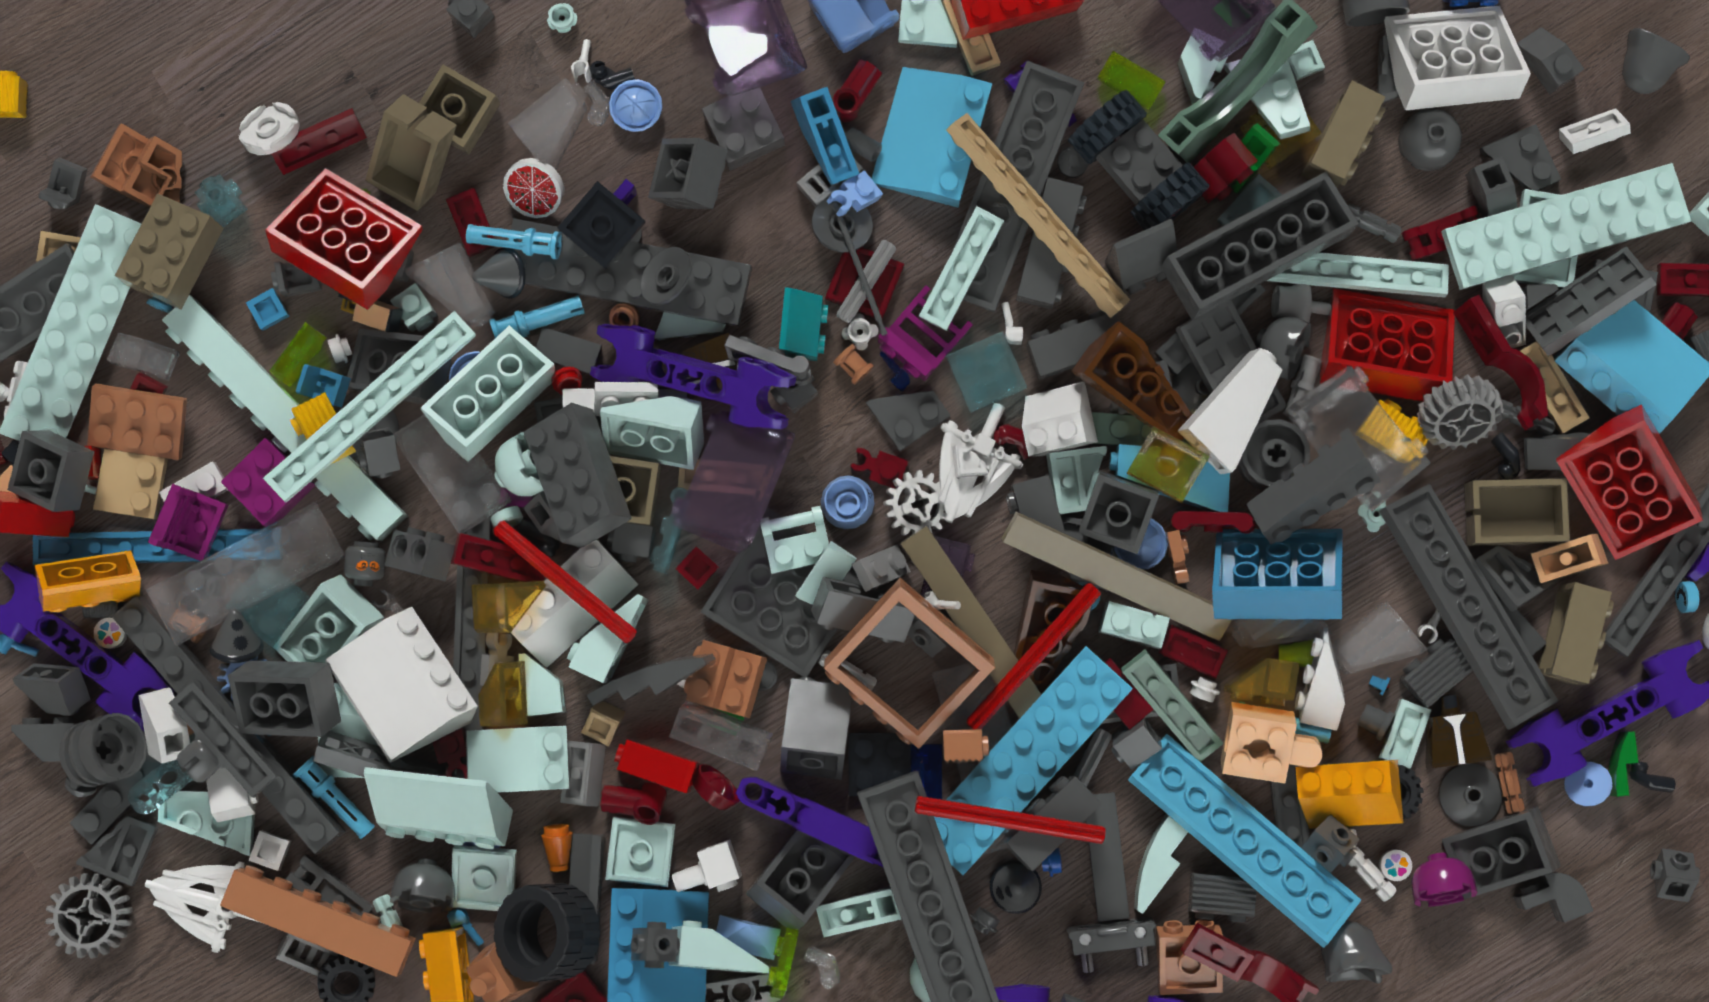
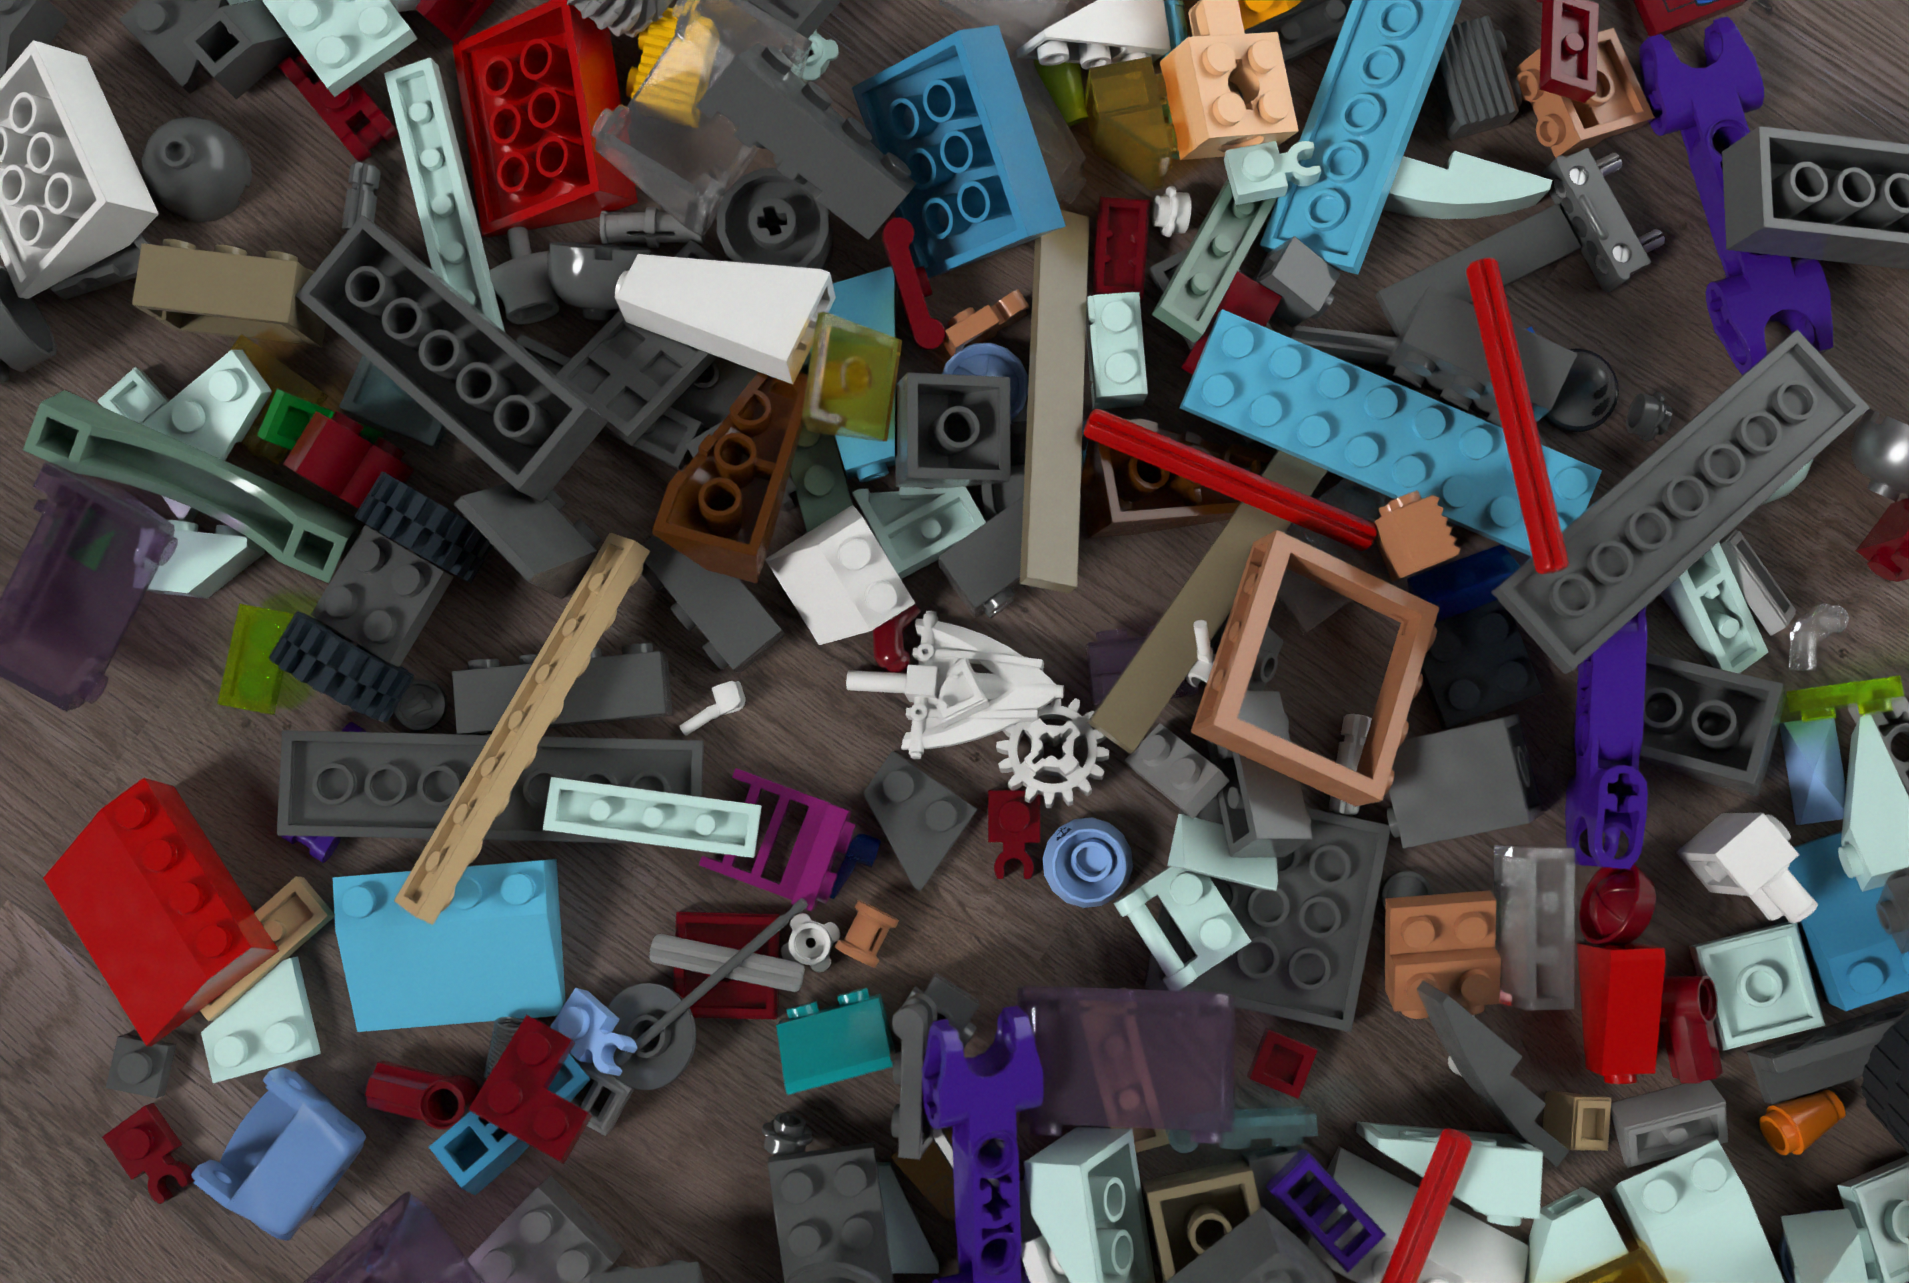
camera: 110 degrees left, 0 degrees up
(609, 545) = (1360, 1244): none -> dark purple slope
(760, 281) = (786, 1134): none -> dark grey plate
(838, 144) = (519, 1097): none -> dark red plate
(867, 941) = (1757, 584): none -> light grey tile
(986, 372) = (803, 719): clear light blue plate -> none
(1207, 745) = (1264, 174): none -> light aqua plate

